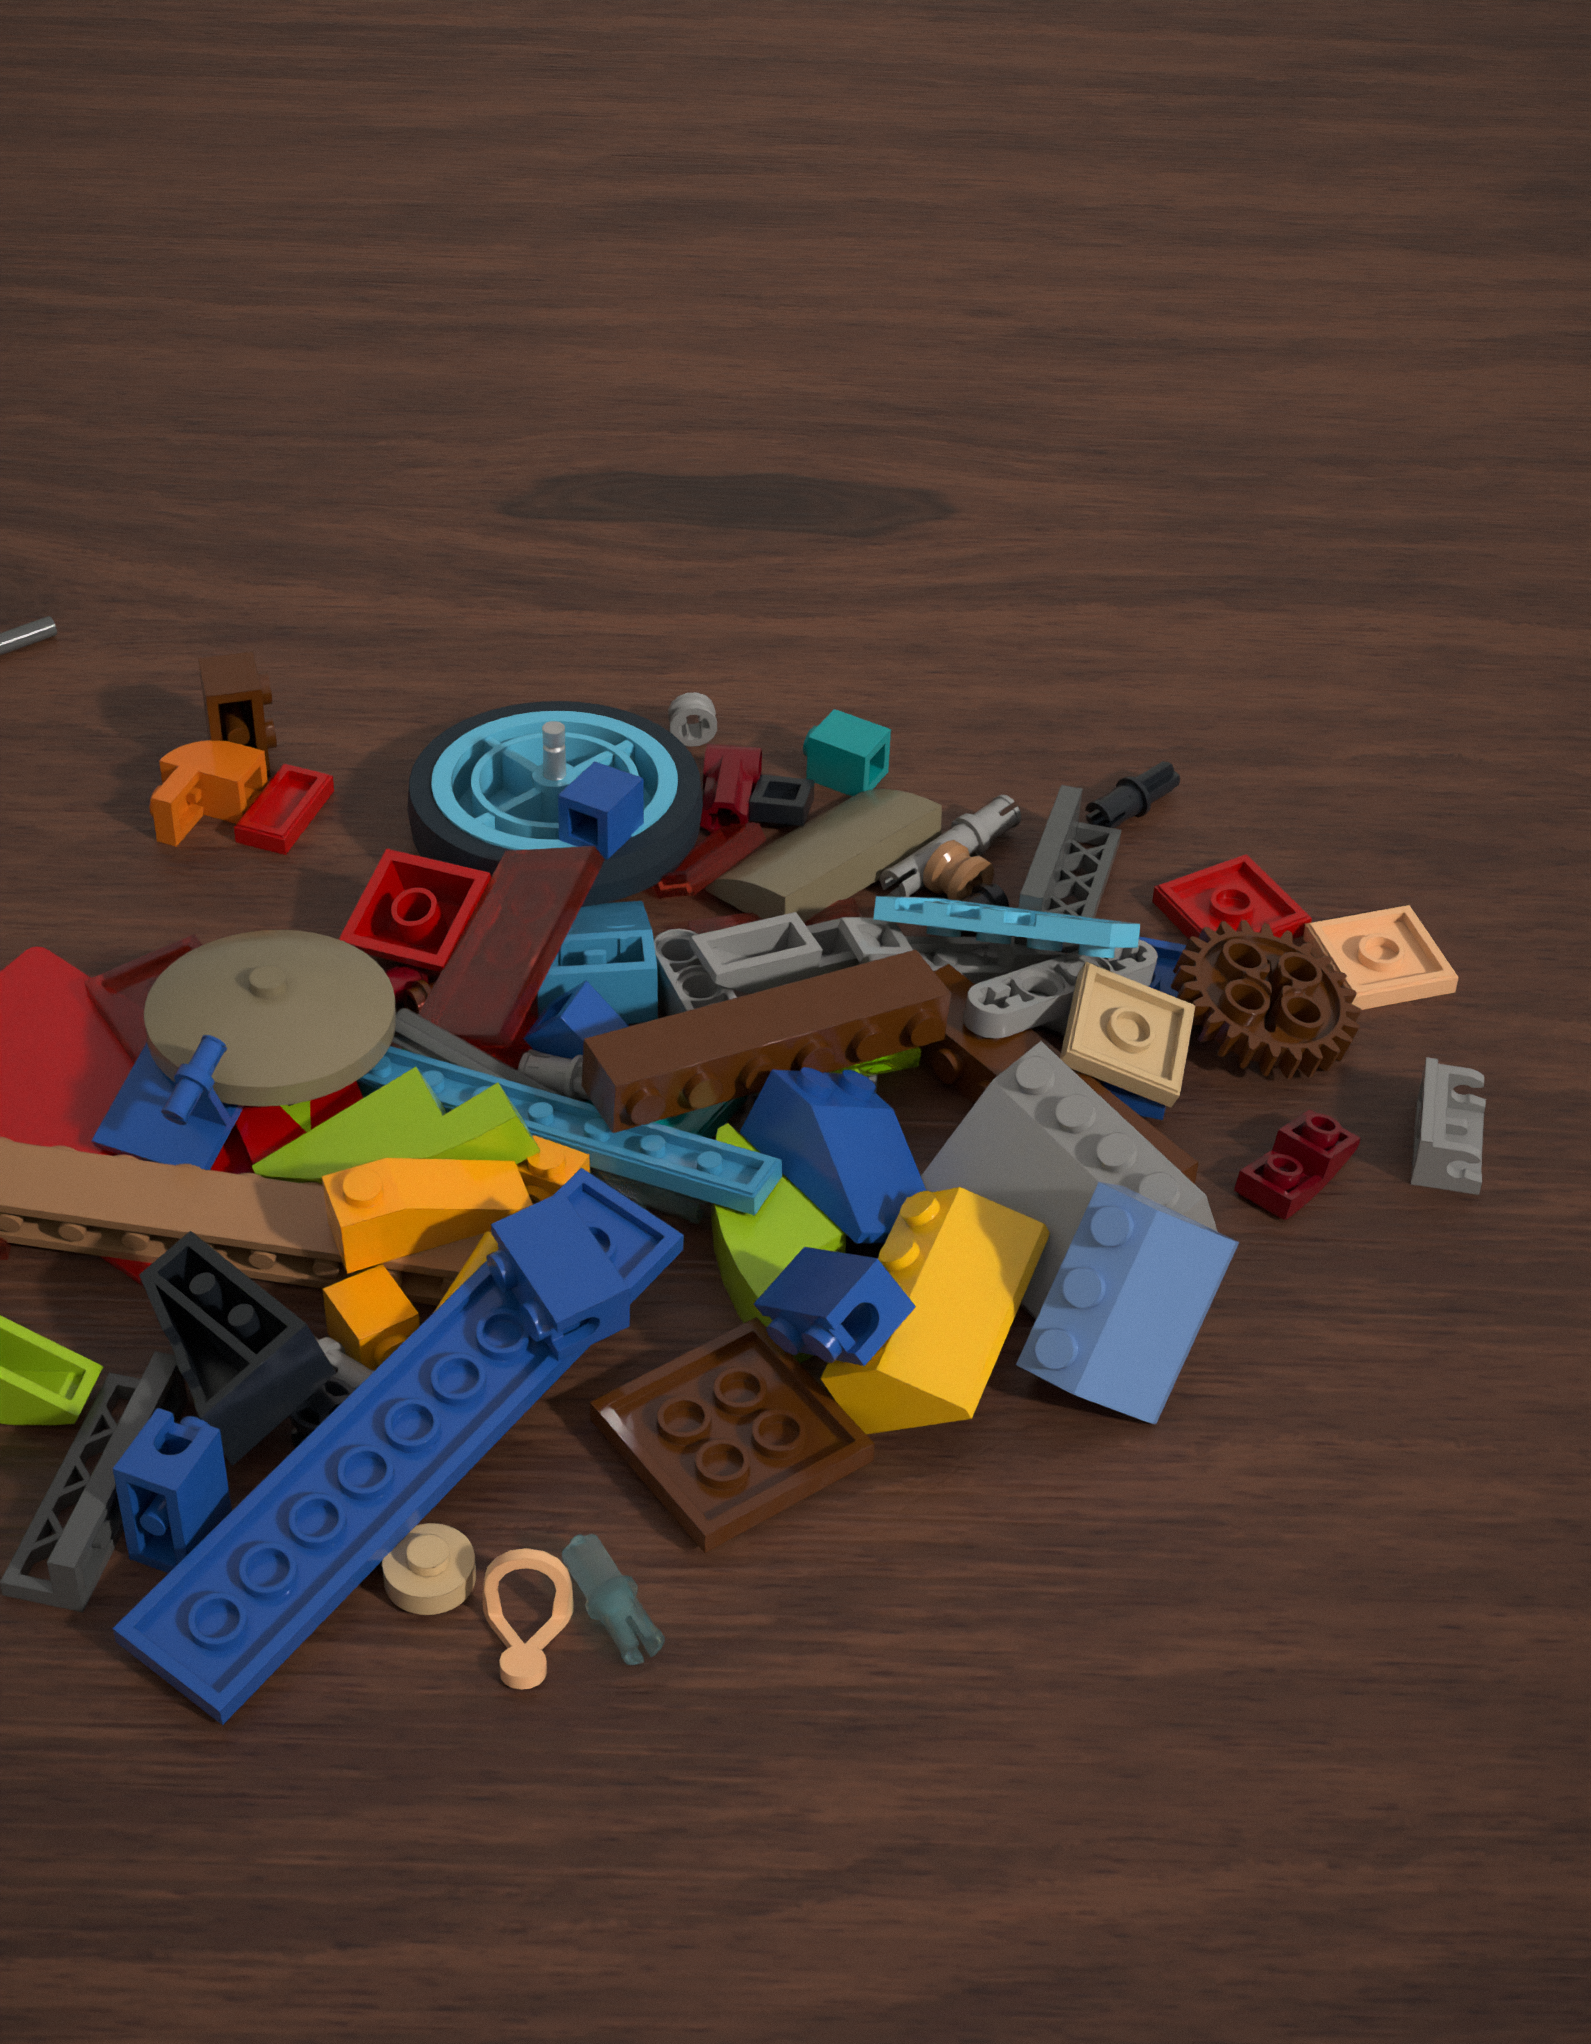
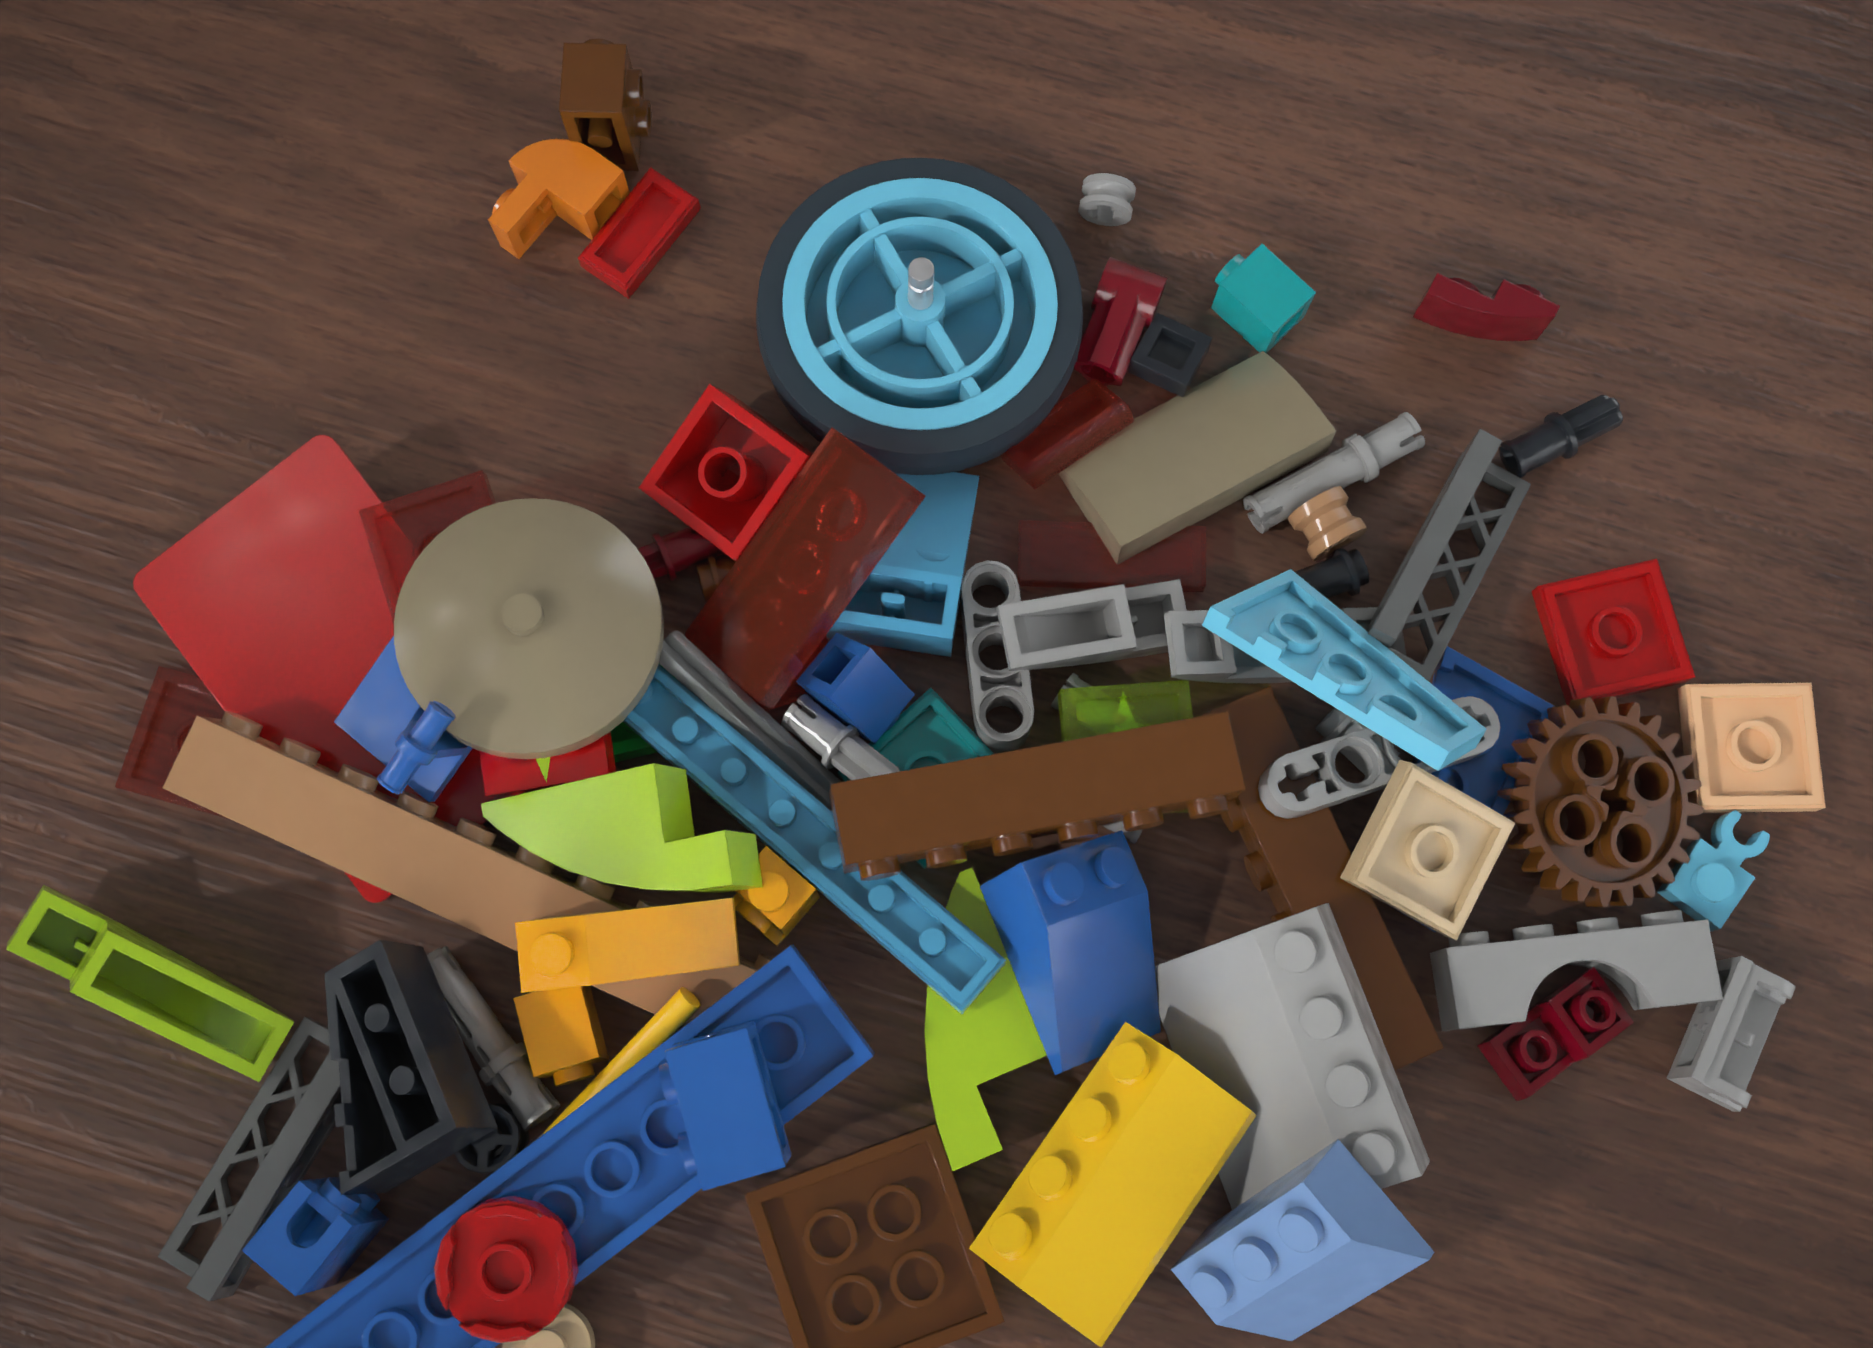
camera: 15 degrees right, 35 degrees up
(375, 1470) = (506, 1269): none -> red tile
(601, 808) = (950, 390): blue brick -> none
(834, 1306) = (993, 1208): blue brick -> none
(1027, 735) = (1511, 313): none -> dark red slope
(1361, 1088) = (1651, 964): none -> light grey arch
(1385, 1040) = (1713, 878): none -> medium azure plate

